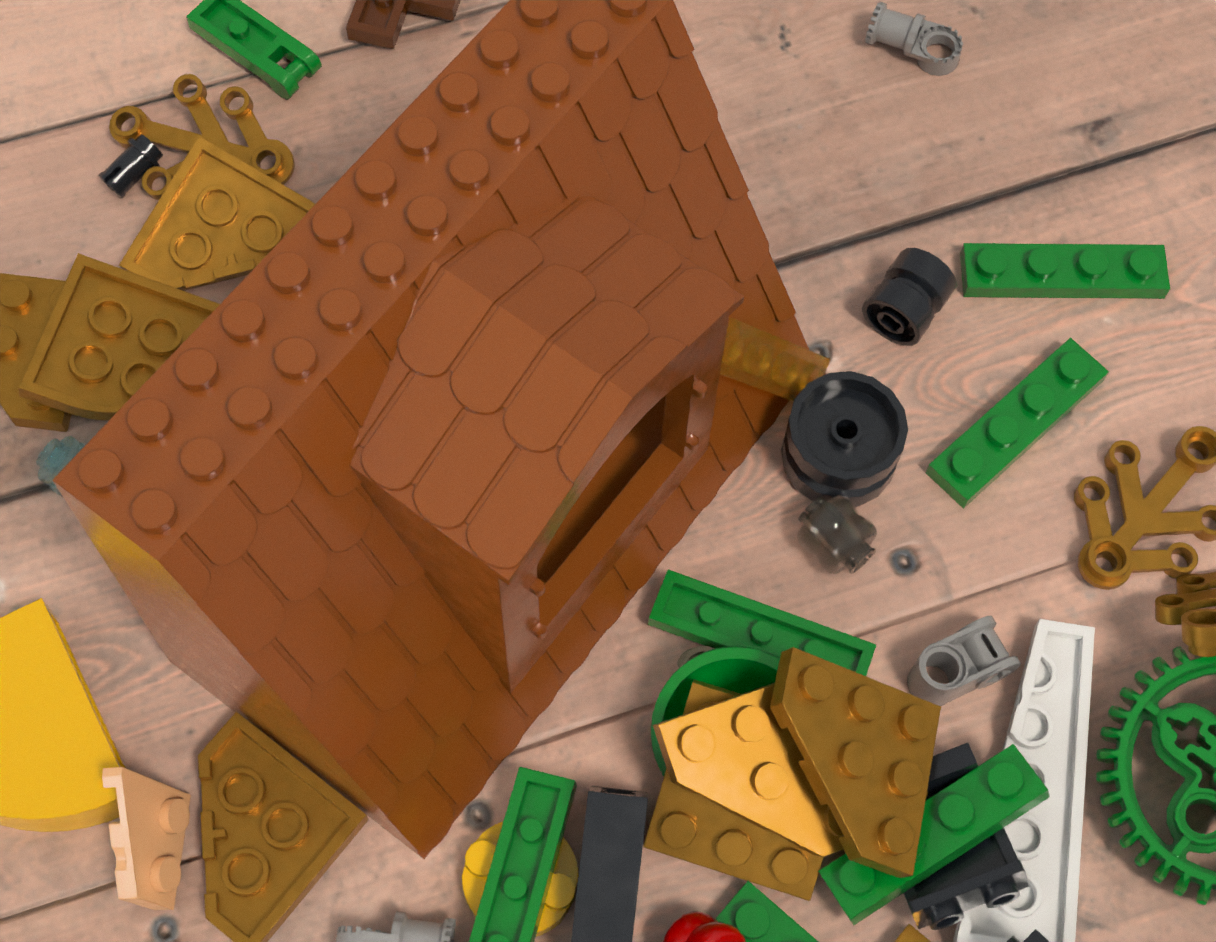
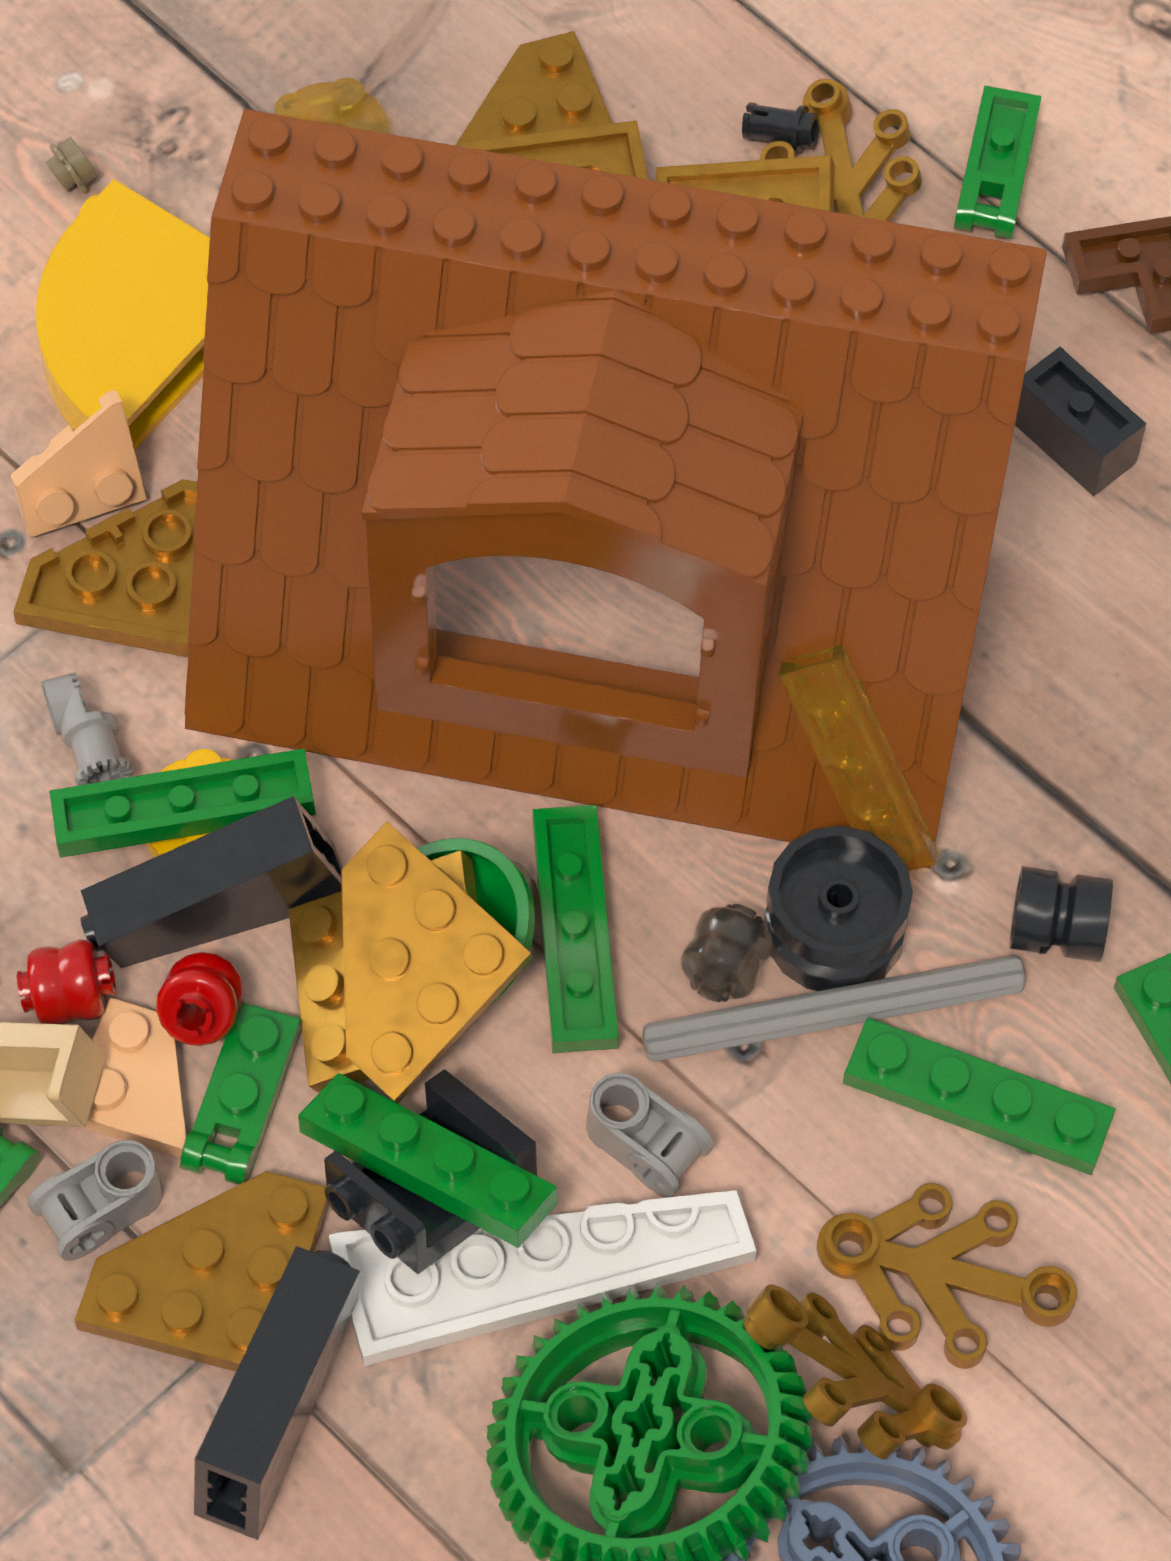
camera: 65 degrees right, 5 degrees down
(862, 754) = (460, 1029): pearl gold plate -> none
(906, 490) = (833, 1008): none -> light grey axle

